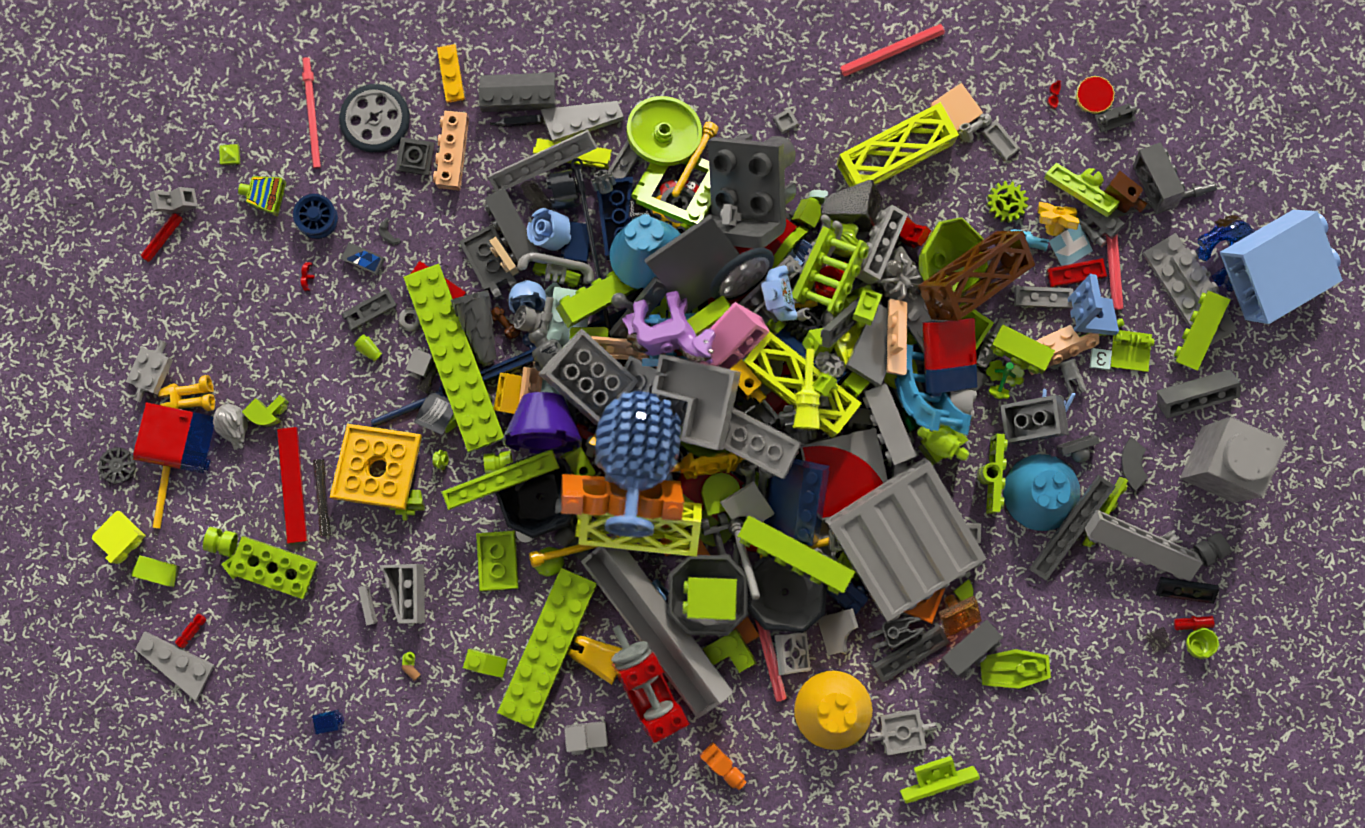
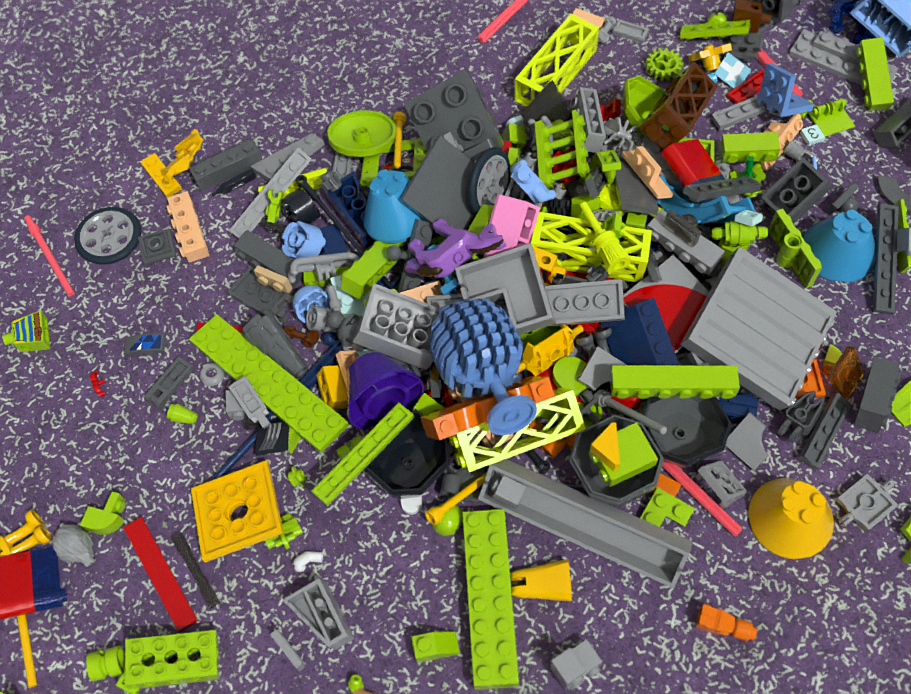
camera: 25 degrees left, 20 degrees down
(315, 216) = (85, 329): dark blue wheel -> none
(386, 235) = (158, 317): dark grey piece -> none
(416, 534) = (306, 557): none -> white arm
(429, 373) = (250, 401): none -> light grey hinge
(480, 69) = (185, 151): none -> yellow plate
(497, 560) = (397, 543): lime tile -> none
(537, 181) = (273, 209): none -> lime plate
(606, 571) = (508, 491): none -> light grey brick
(647, 689) = (608, 582): red piece -> none
(696, 590) = (606, 447): none -> yellow slope
(845, 435) = (652, 267): none -> dark grey tile
(892, 415) = (683, 227): none -> clear smoke tile
(956, 437) = (748, 217): none -> light aqua tile
(958, 388) = (719, 188): none -> dark grey plate

